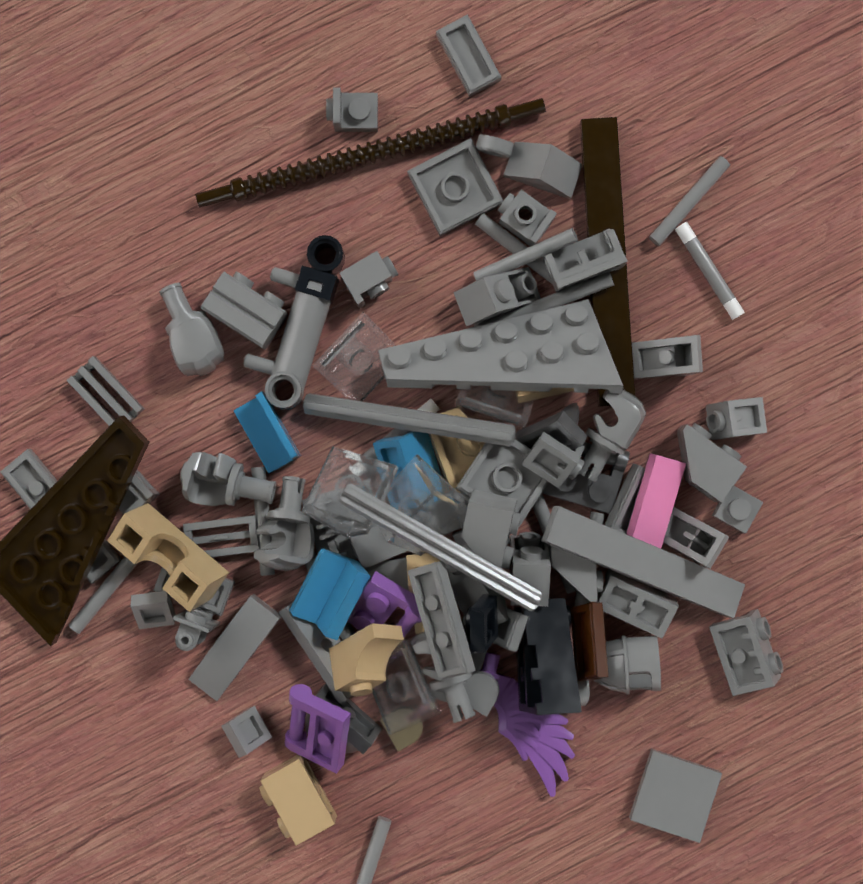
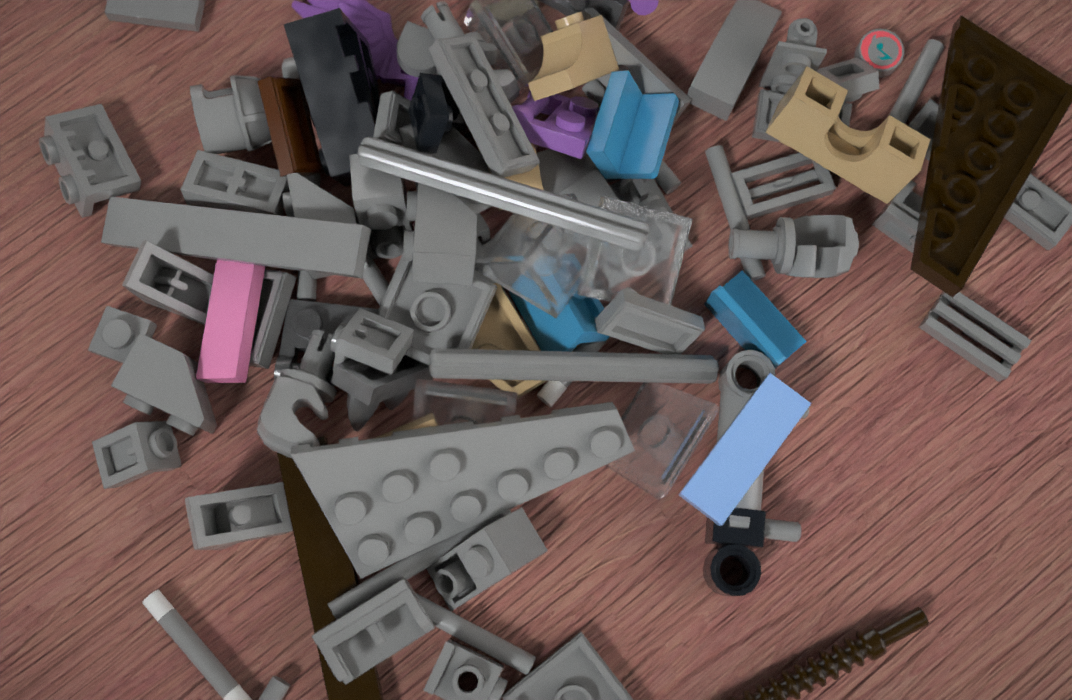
camera: 170 degrees right, 10 degrees down
(120, 630) = (881, 51): none -> light grey tile
(191, 335) = (887, 427): light grey piece -> none
(244, 309) = (824, 476): light grey brick -> none
(289, 530) = (695, 192): light grey piece -> none
(300, 334) = (744, 449): none -> light blue tile
(348, 440) = (649, 323): none -> light grey tile
(369, 277) = (667, 550): light grey brick -> none
(529, 254) = (455, 622): light grey bar -> none

